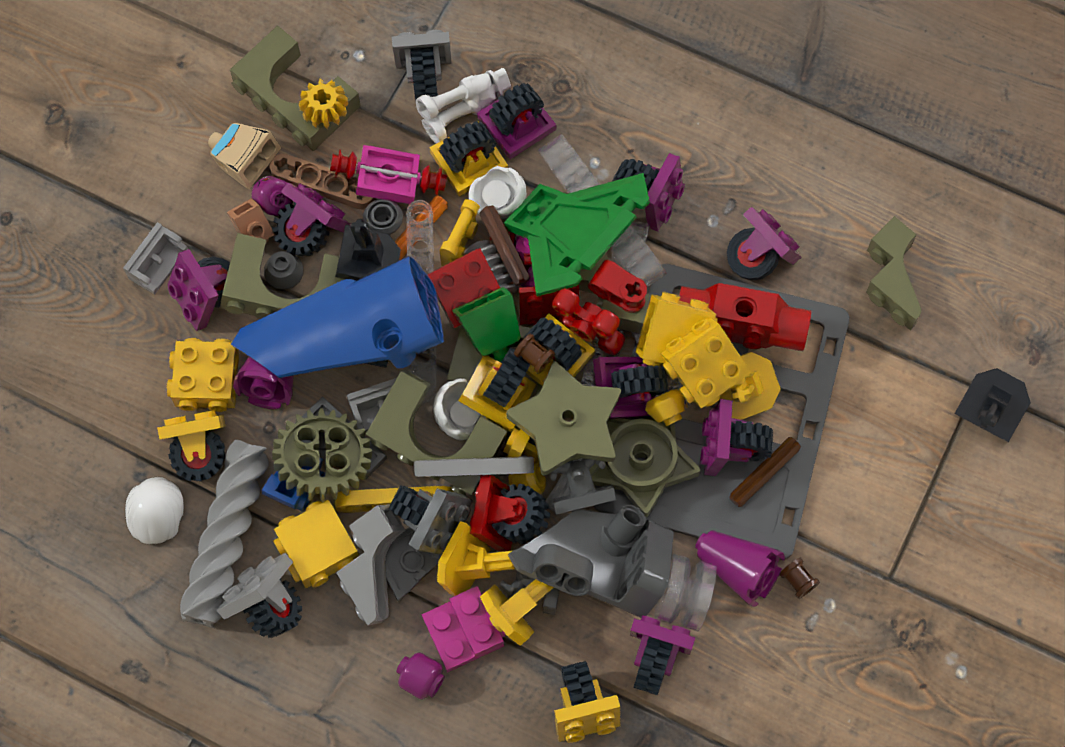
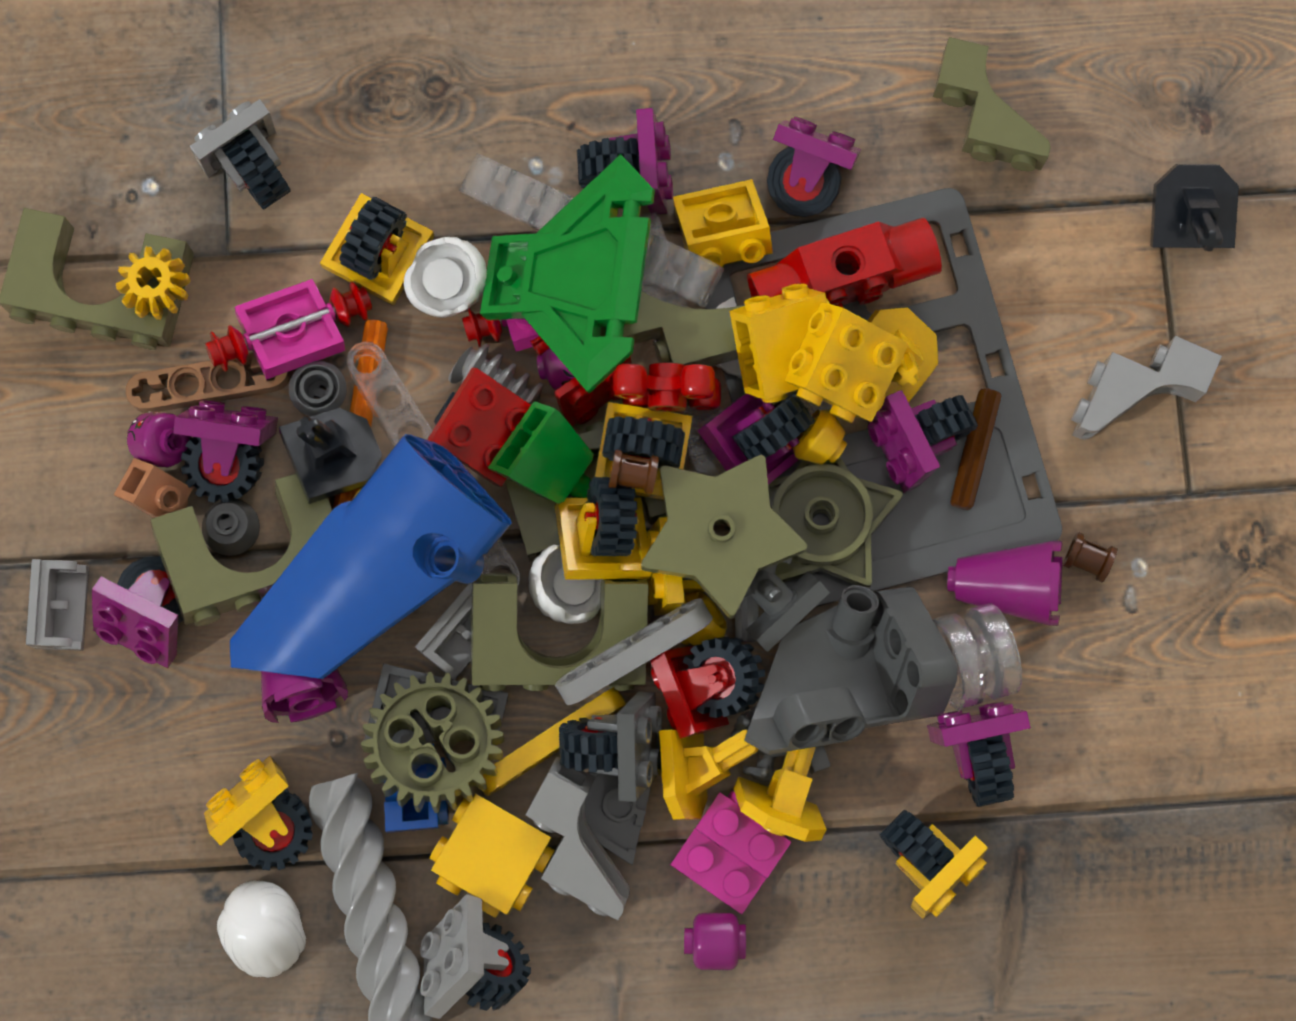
camera: 35 degrees left, 10 degrees up
(203, 374) = (214, 721): yellow brick -> none
(243, 152) = (84, 402): tan torso -> none
(463, 230) = (430, 345): yellow plate -> none
(476, 94) = (336, 160): white piece -> none
(504, 245) = (497, 342): reddish brown axle -> none
(517, 120) = (408, 165): plate -> none
(615, 285) = (674, 322): red piece -> none
(687, 253) = (724, 223): none -> yellow plate
(885, 486) = (1122, 383): none -> light grey arch

